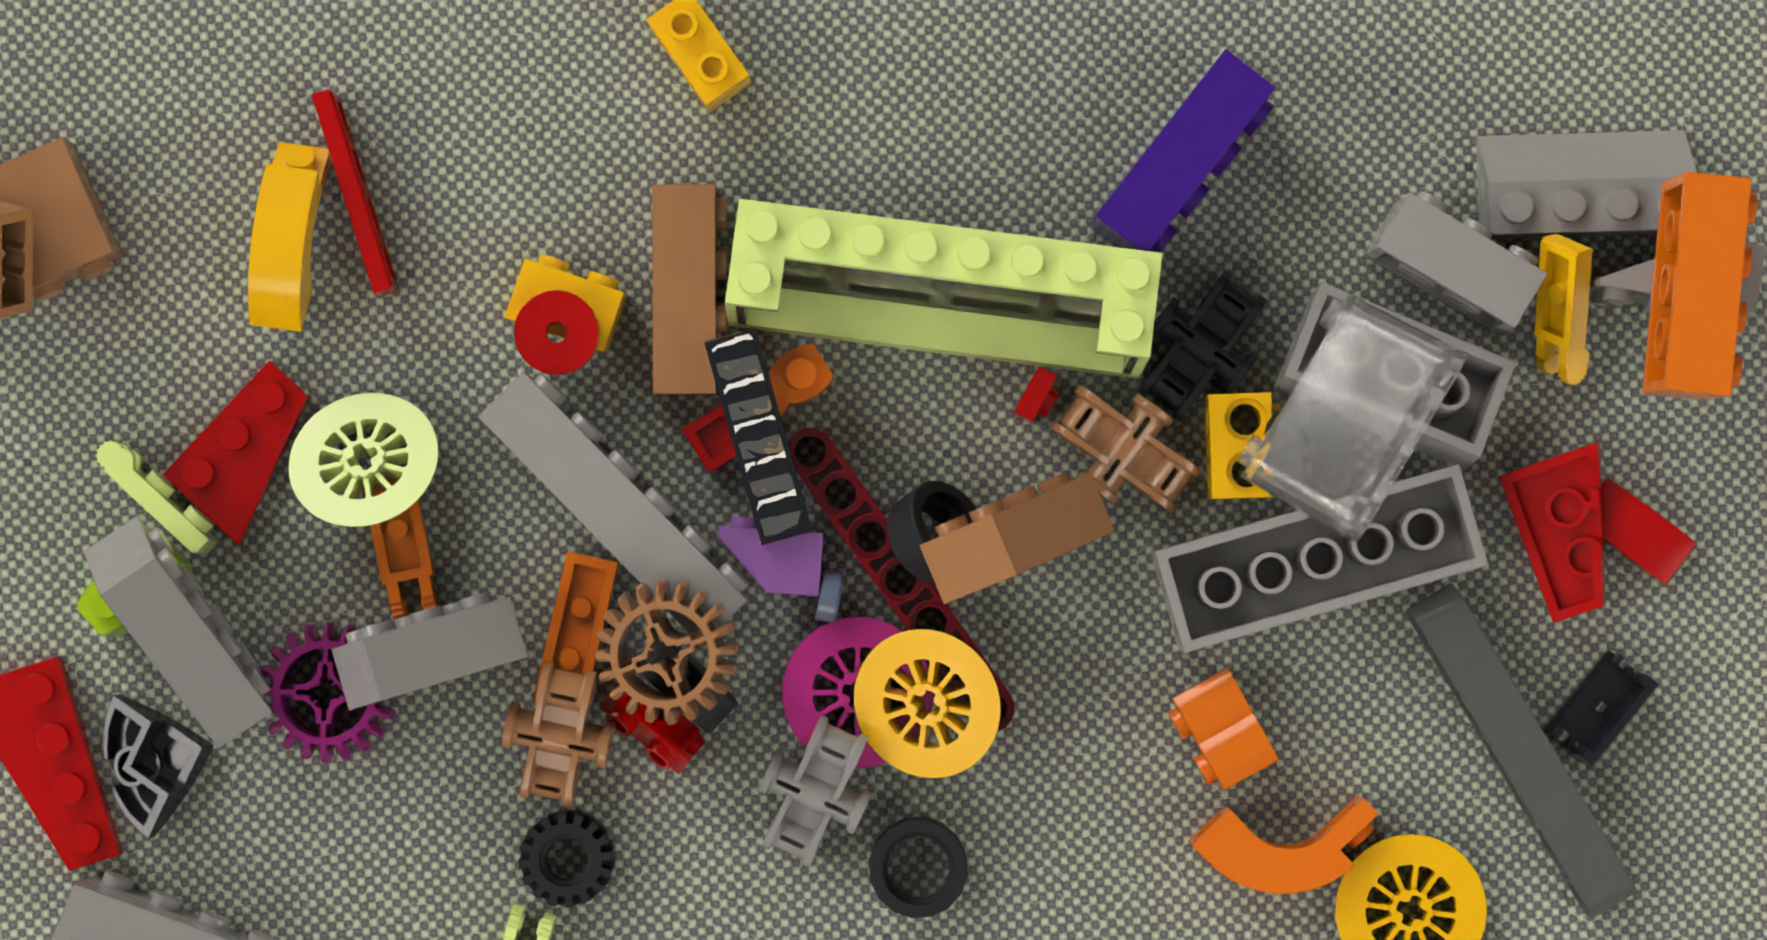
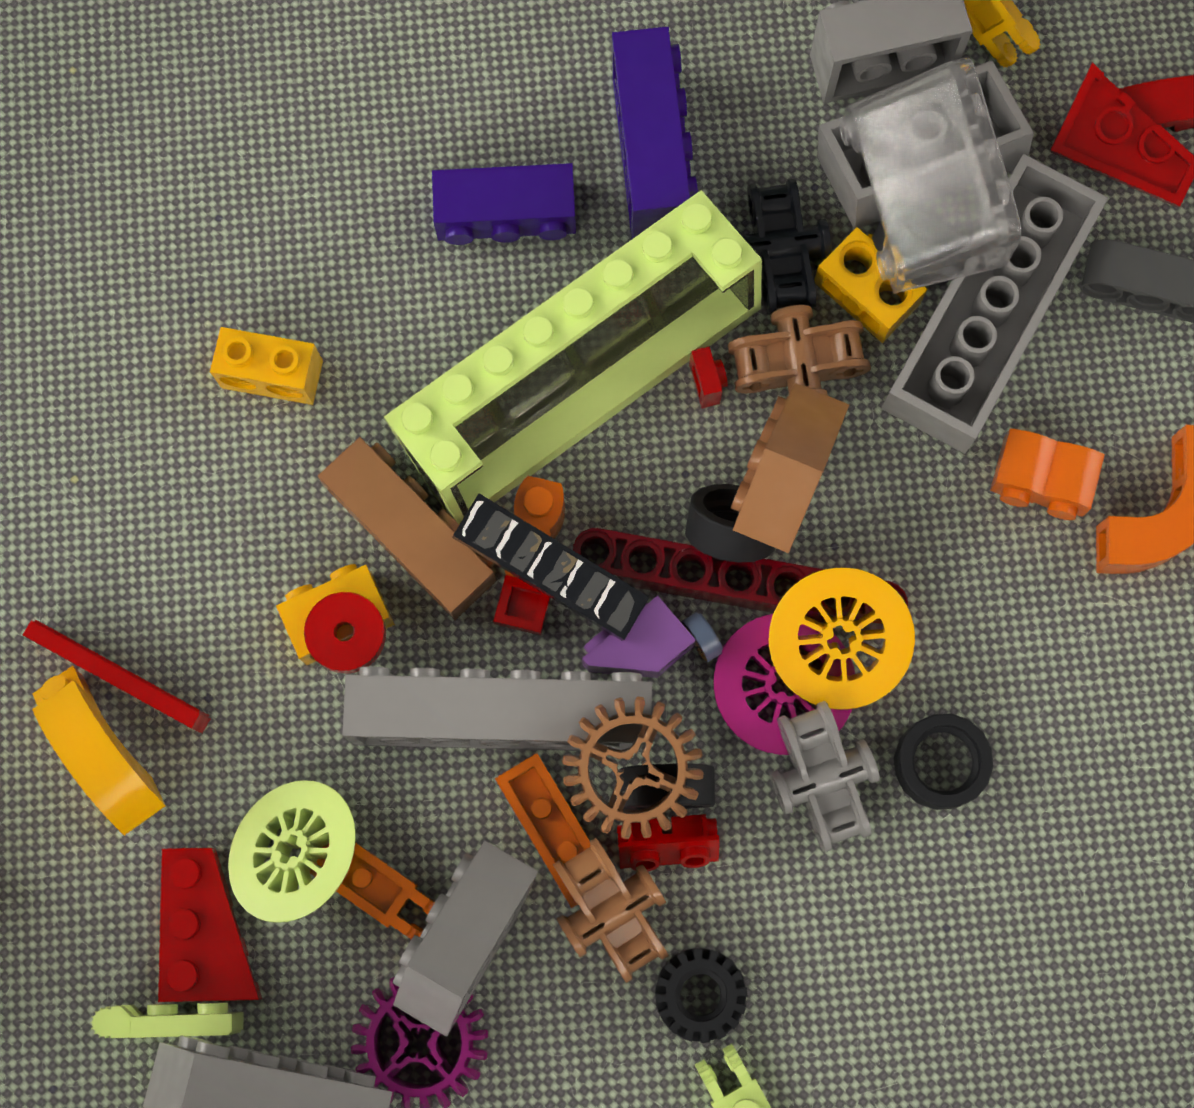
camera: 40 degrees left, 10 degrees down
(1015, 95) = (504, 203): none -> dark purple brick

